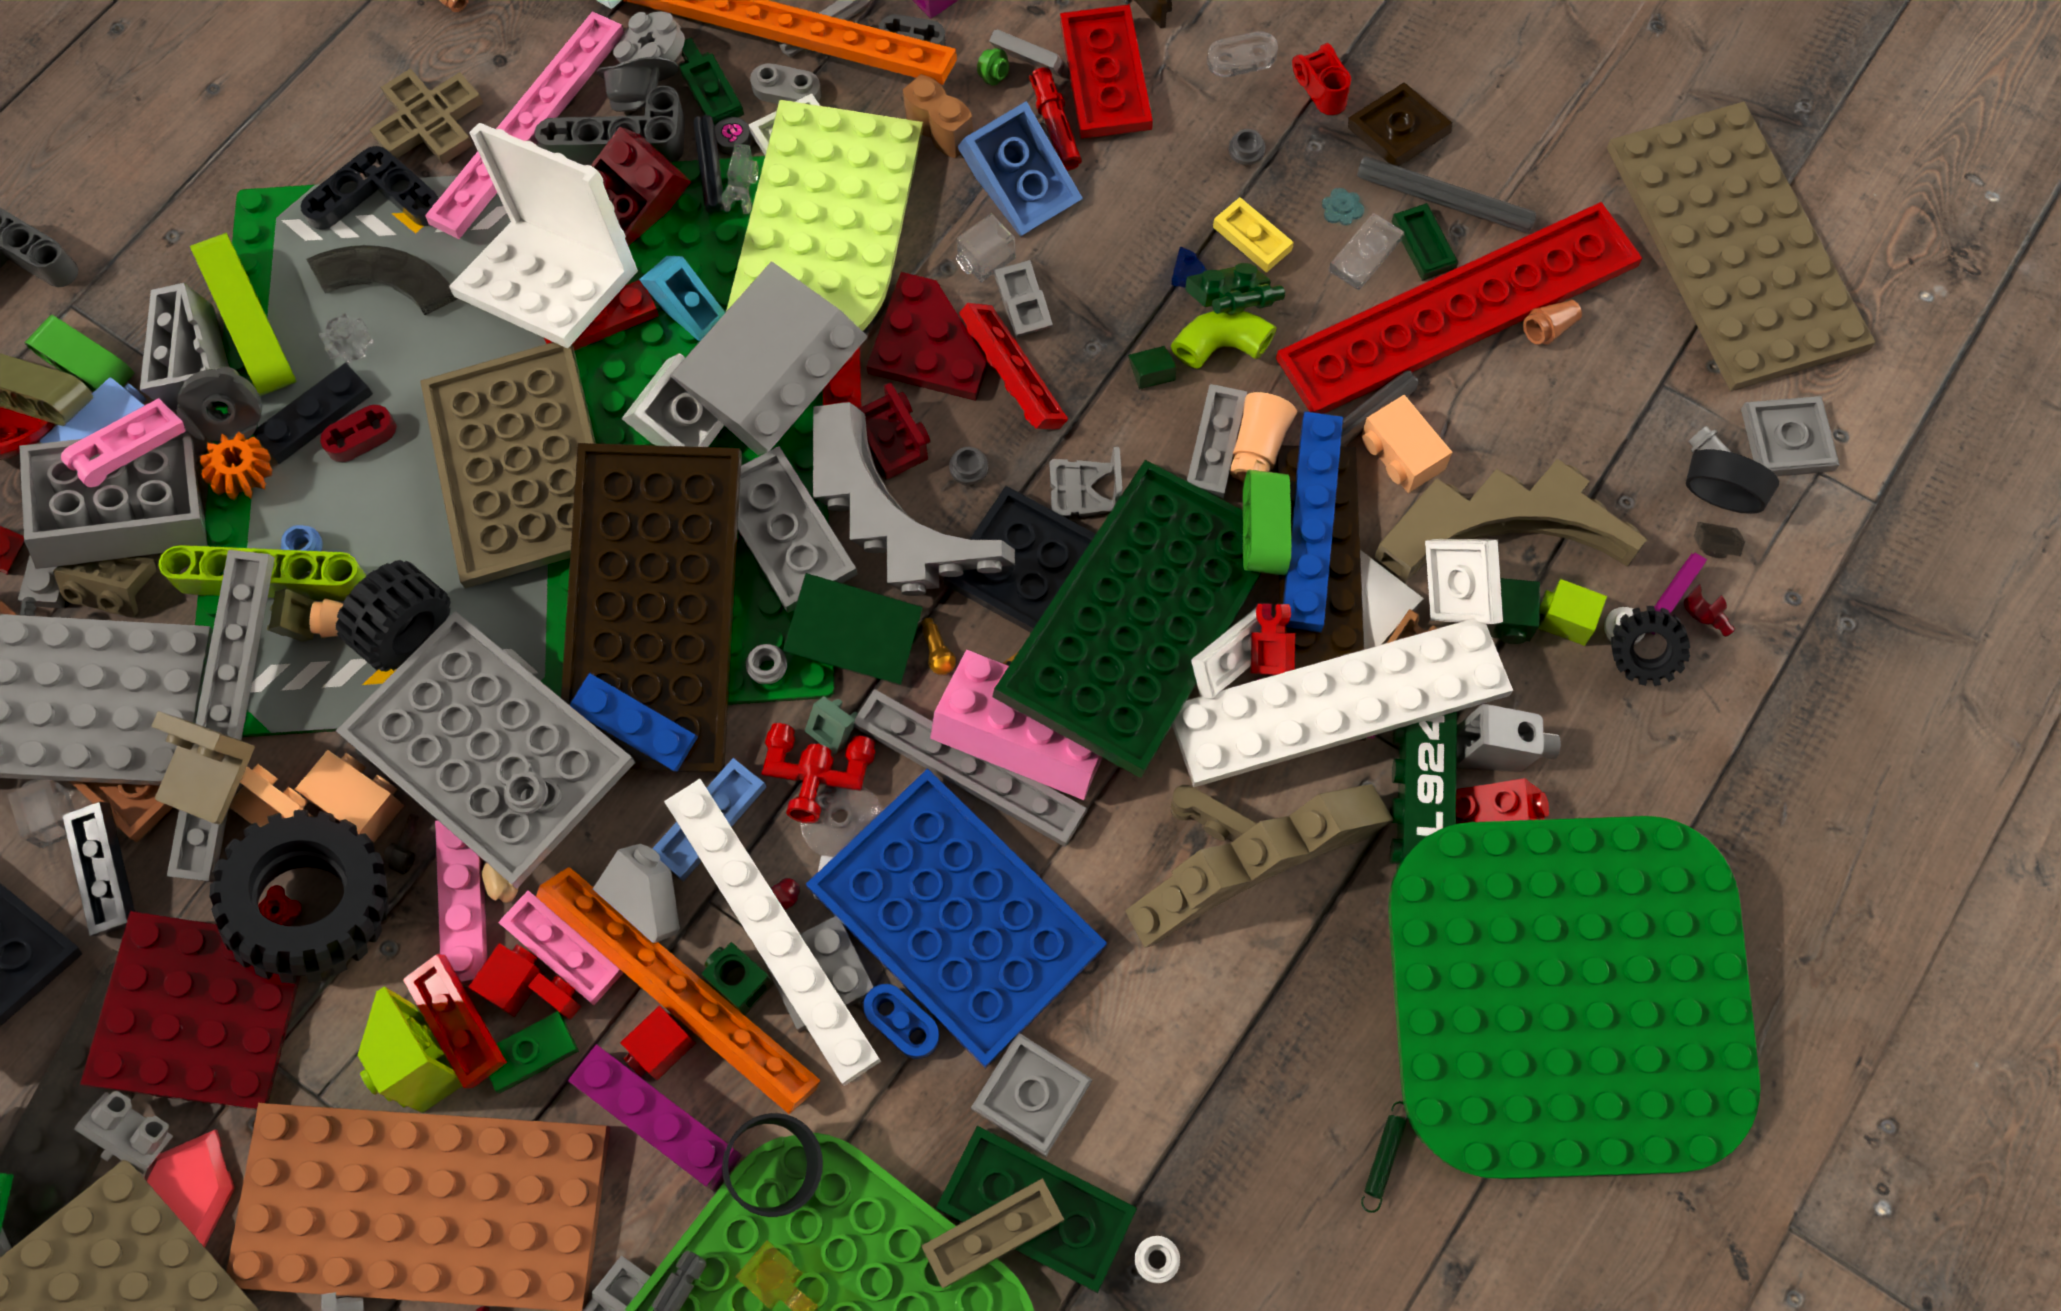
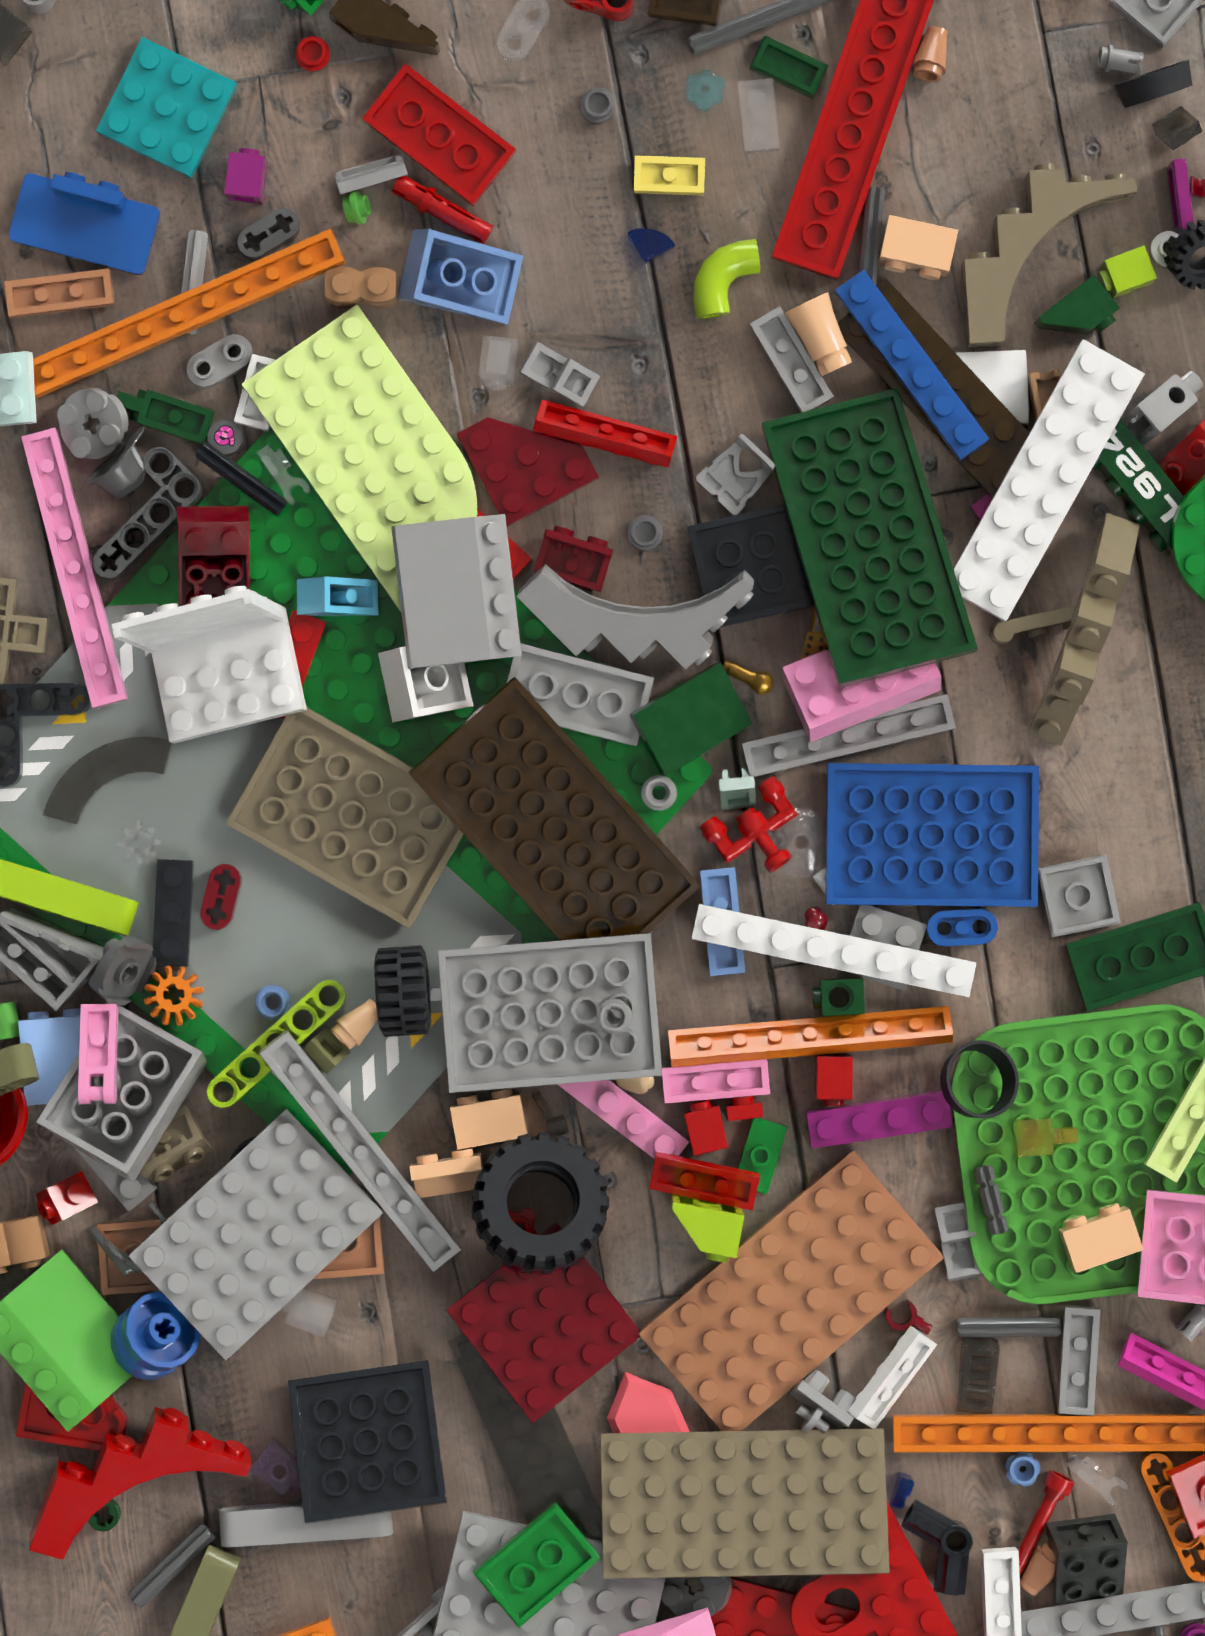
camera: 45 degrees left, 20 degrees up
(99, 868) = (387, 1307): plate -> none
(124, 1131) = (582, 1423): light grey hips -> none
(203, 768) = (398, 1193): dark tan bracket -> none
(633, 722) = (620, 910): blue plate -> none
(641, 891) = (732, 1003): light grey slope -> none
(992, 1233) = (1136, 995): dark tan plate -> none
(1153, 367) = (694, 342): dark green slope -> none
(1225, 657) = (948, 508): white tile -> none
(1234, 289) = (694, 234): dark green plate -> none
(1266, 522) = (885, 396): bright green beam -> none
(1272, 648) = (967, 482): red plate -> none
(1464, 580) = (1049, 324): white plate -> none

